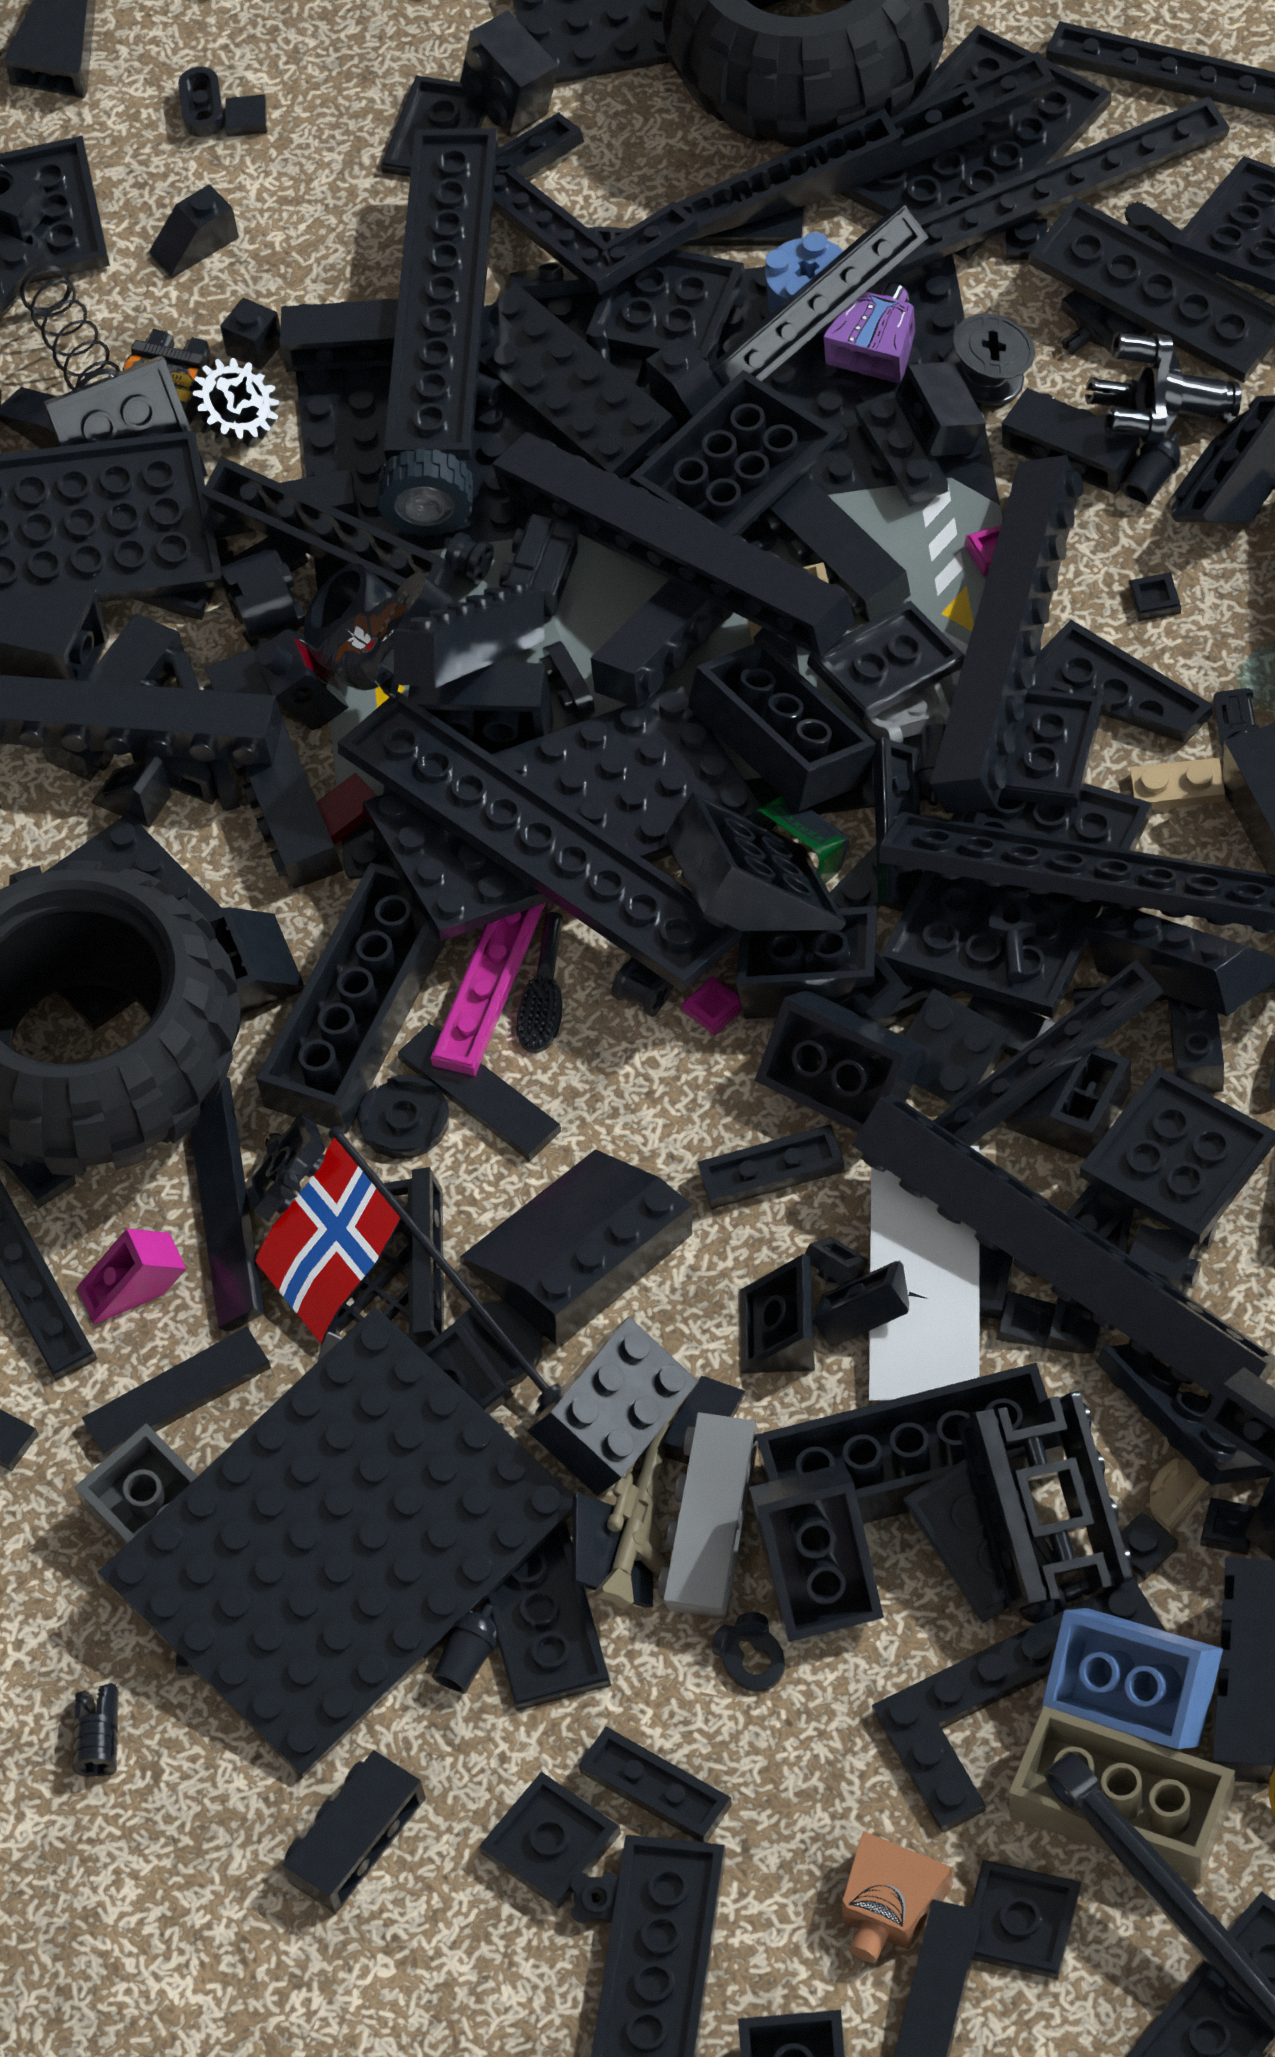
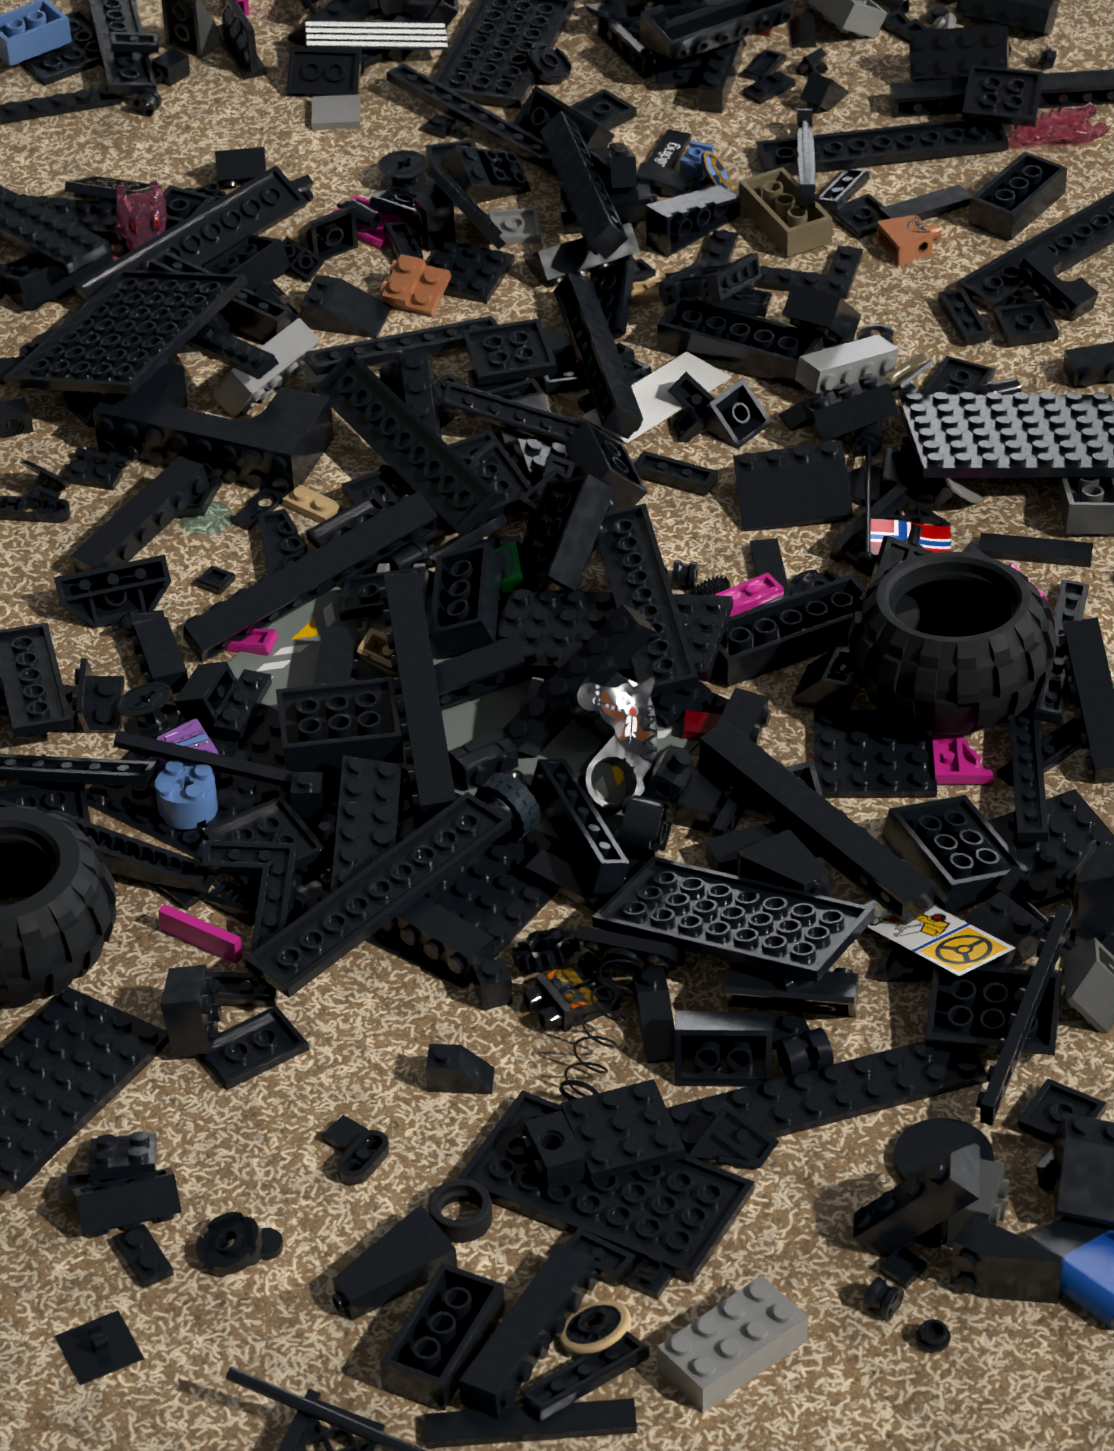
camera: 145 degrees left, 15 degrees down
(49, 94) = (461, 1190): none -> black tyre
(518, 1931) = (1069, 298): none -> black arch
(584, 1003) = (684, 574): none -> black wheel
(619, 182) = (200, 933): none -> dark pink tile
(1063, 322) = (97, 700): none -> black bracket
(1104, 1948) = (843, 188): none -> black tile
(1132, 1678) = (742, 222): medium blue brick -> none
(1159, 391) = (102, 633): black wheel -> none

